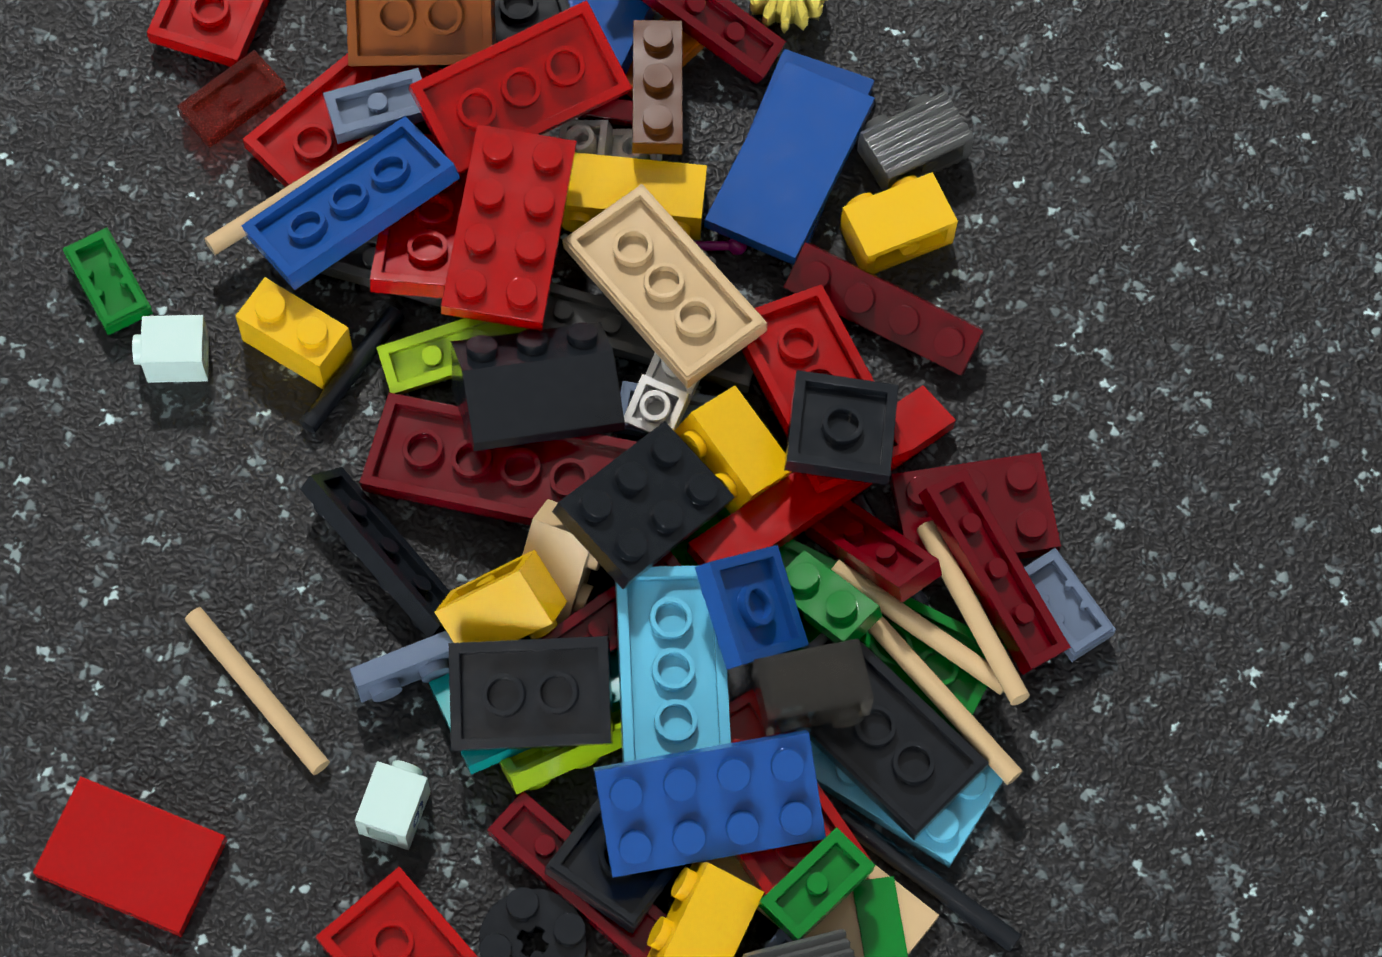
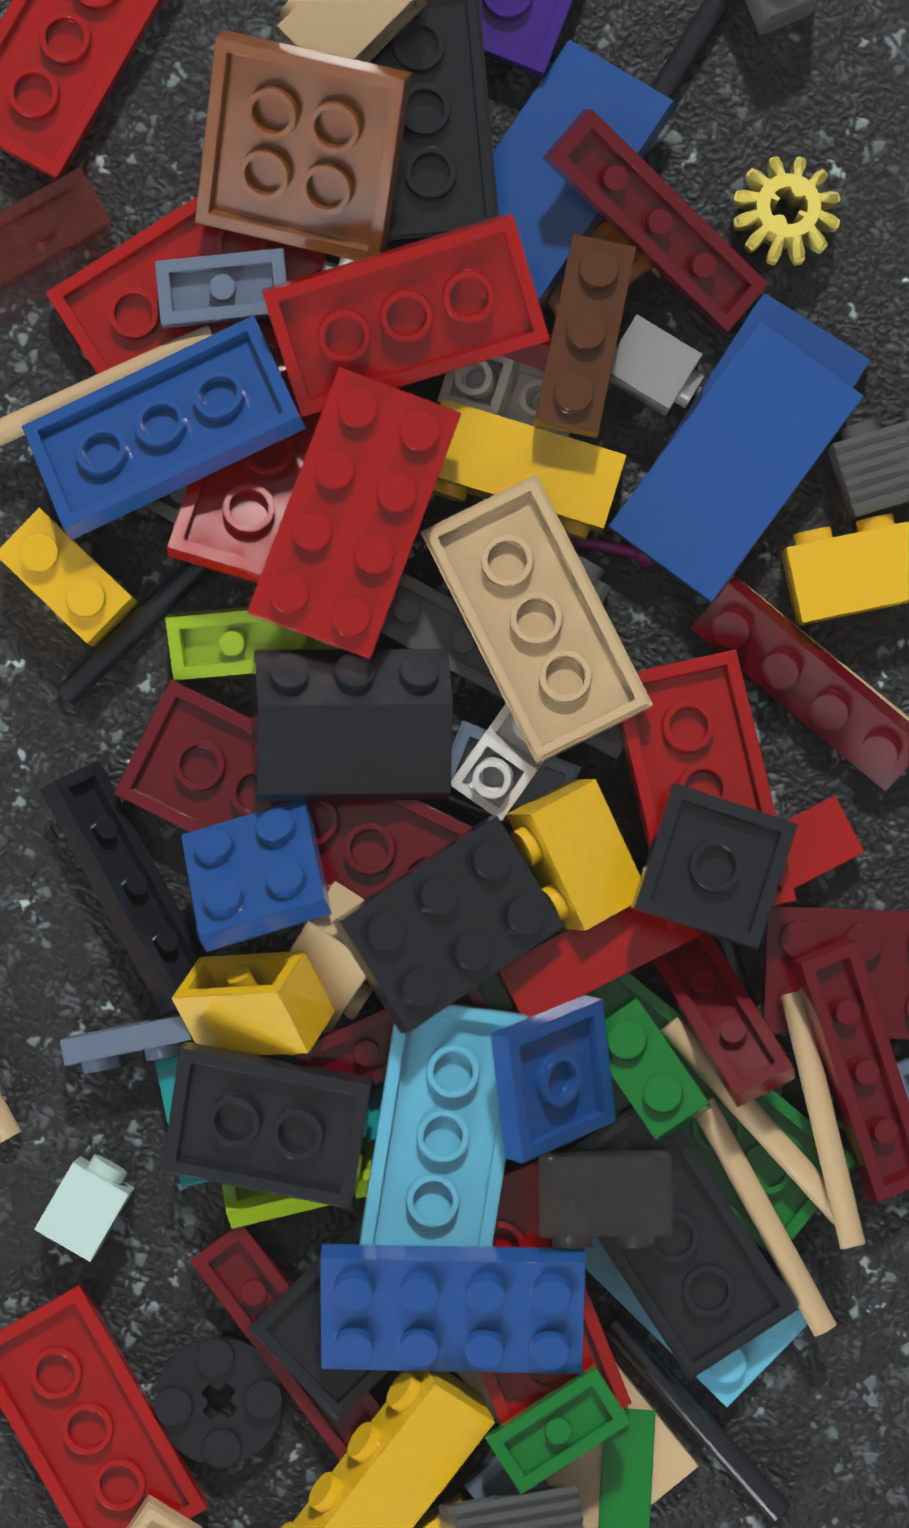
camera: 20 degrees right, 20 degrees up
(484, 501) = (255, 874): none -> blue plate
(715, 110) = (655, 367): none -> light grey brick

